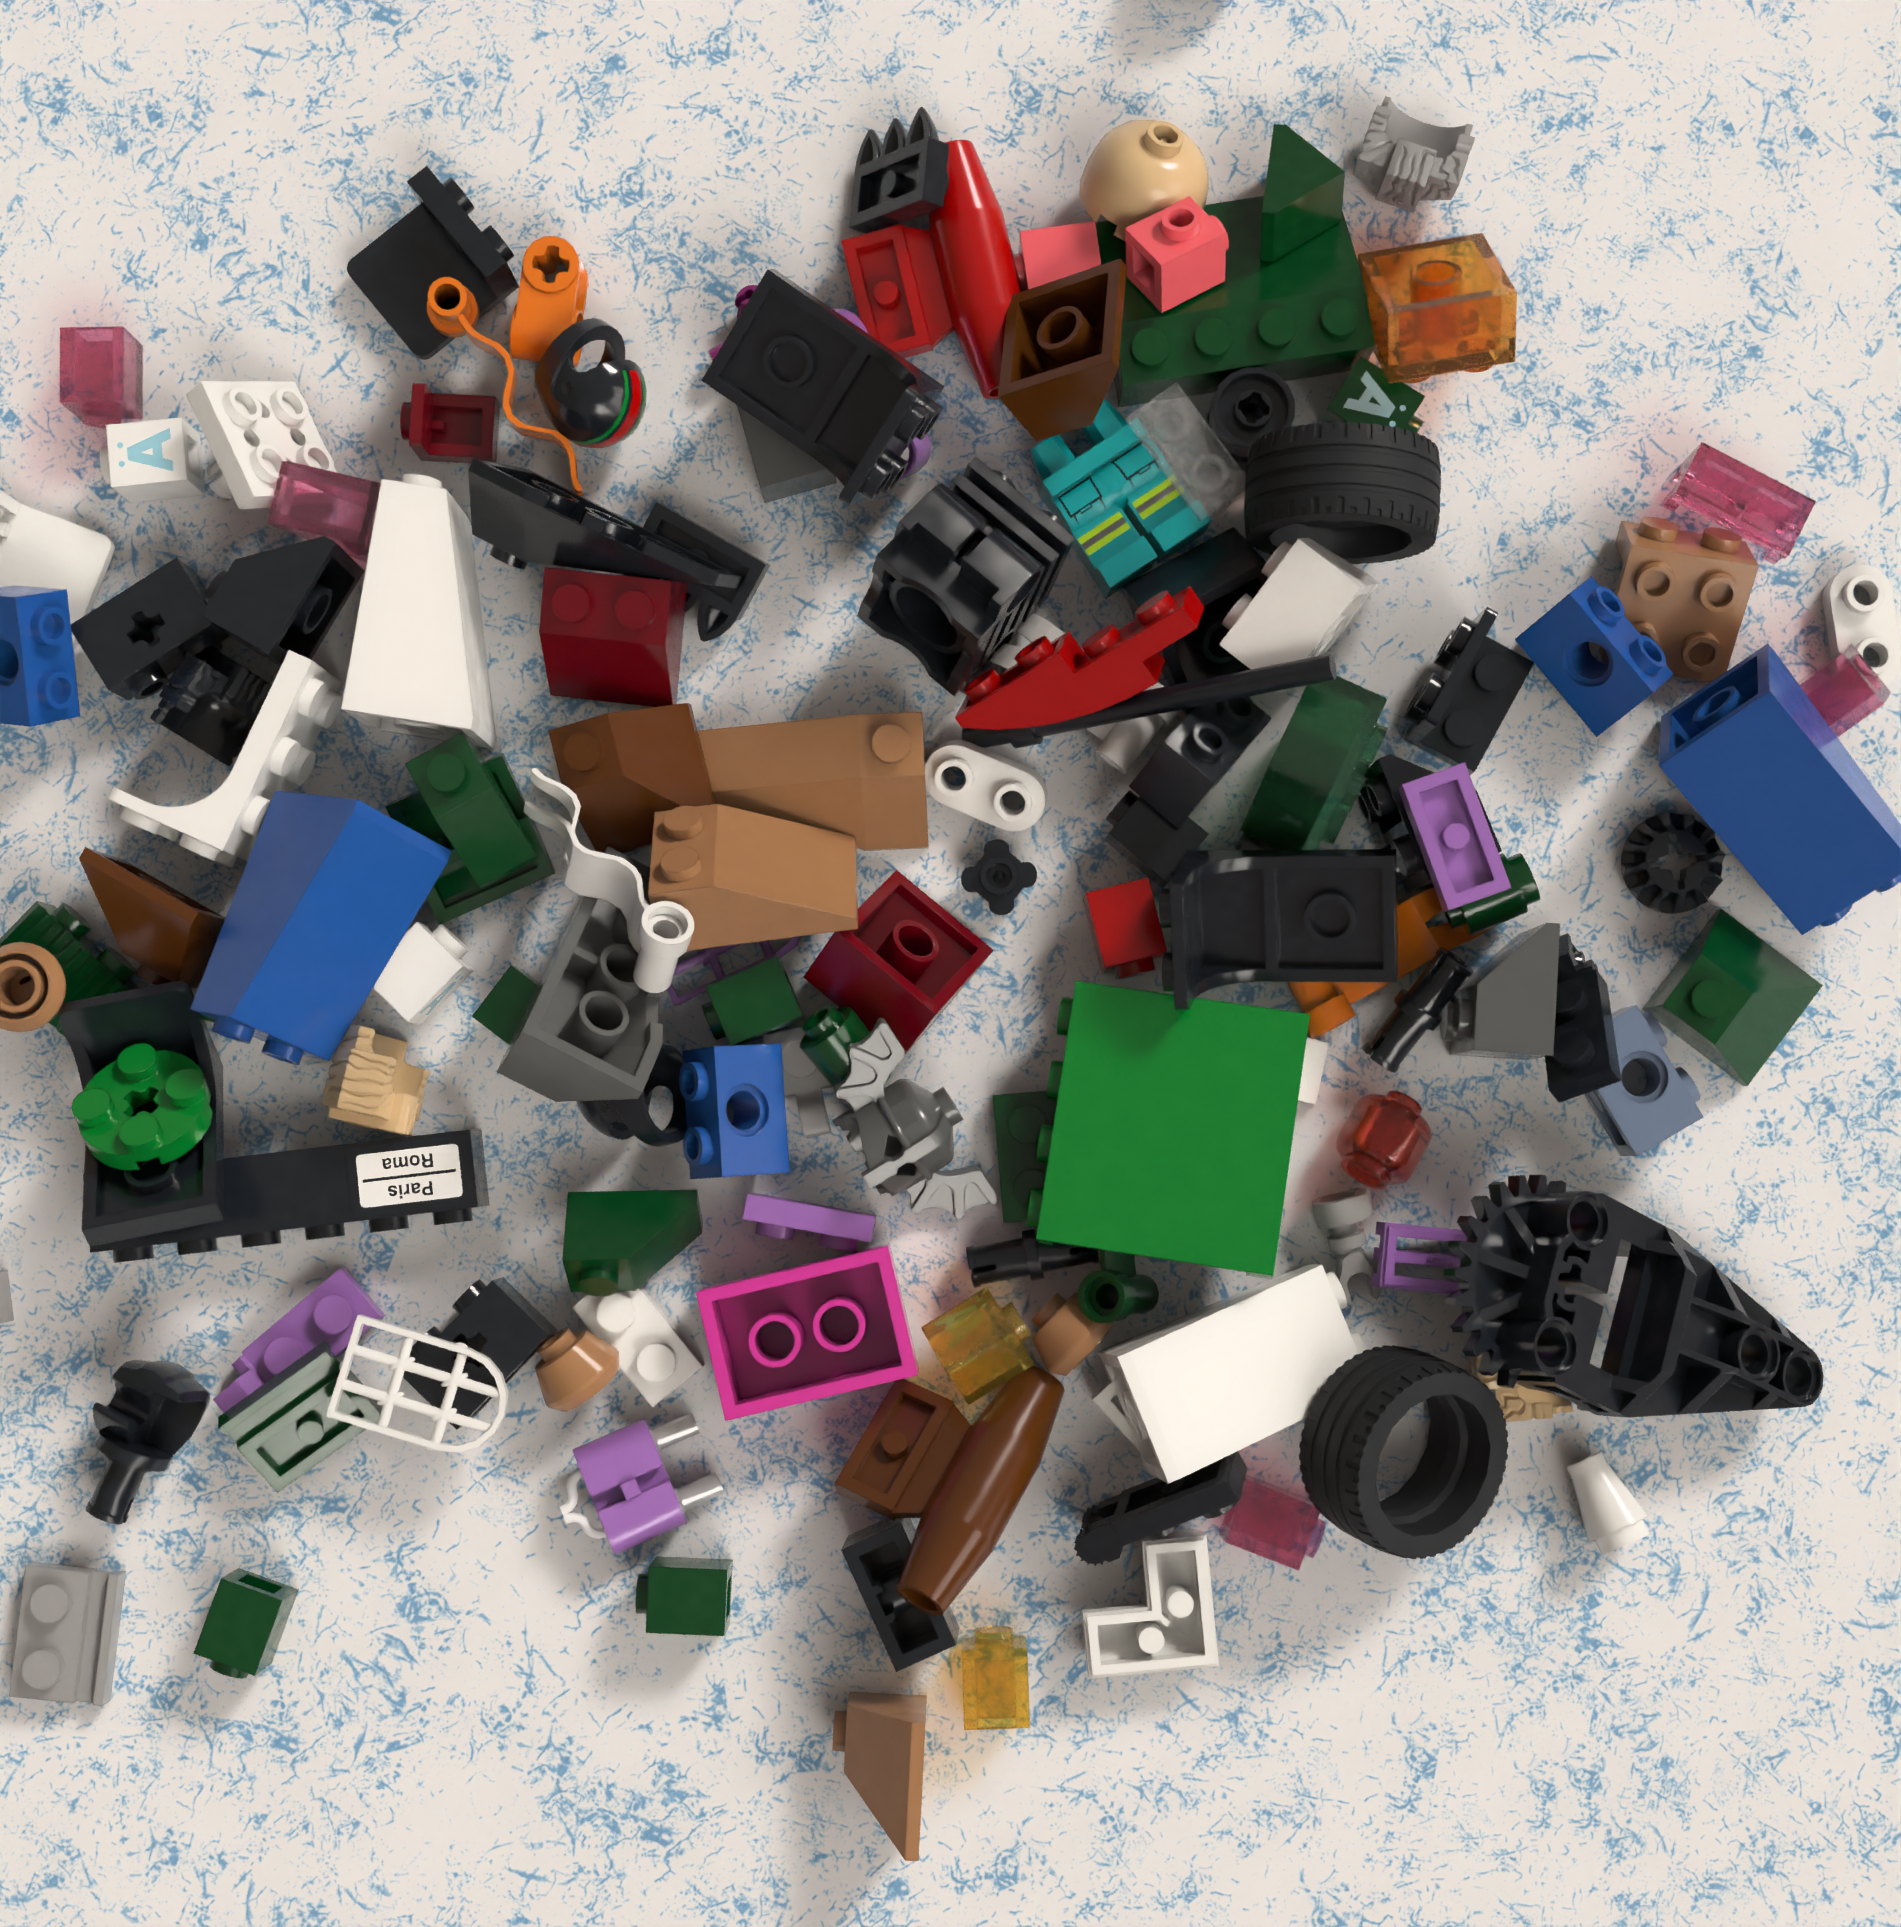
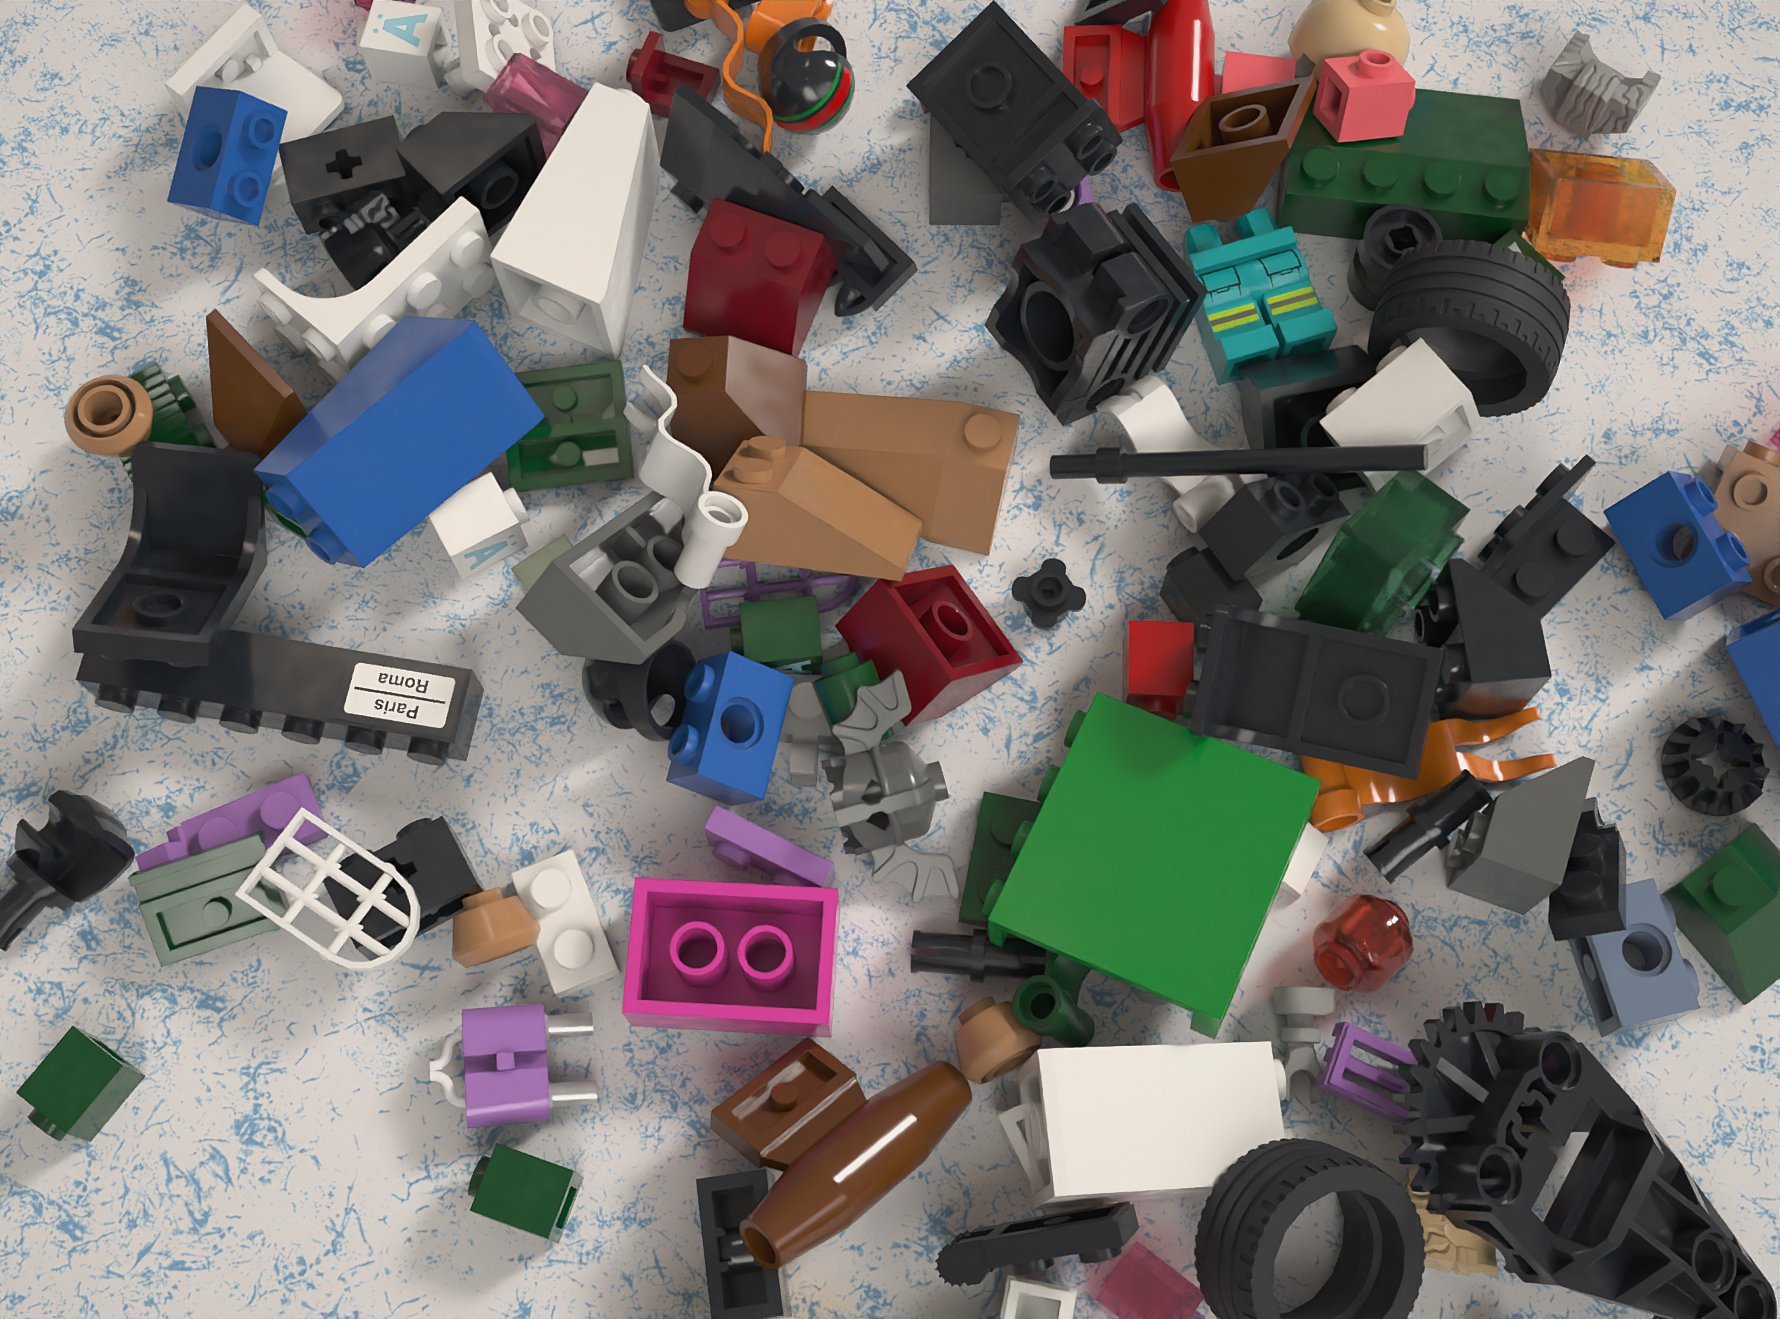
camera: 15 degrees right, 15 degrees down
(130, 1081) = (177, 555): green plate -> none
(374, 1083) = (398, 607): tan hair -> none
(471, 809) = (576, 387): dark green slope -> none
(625, 1236) = (586, 816): dark green slope -> none
(979, 1344) = (900, 1023): clear yellow brick -> none
(986, 781) = (1058, 508): white plate -> none
(1064, 682) = (1160, 420): red slope -> none
(1188, 452) = (1331, 267): clear hinge -> none
(1300, 194) = (1487, 86): dark green slope -> none
(1454, 837) = (1508, 644): medium lavender plate -> none
(1500, 906) = (1525, 732): dark green brick -> none

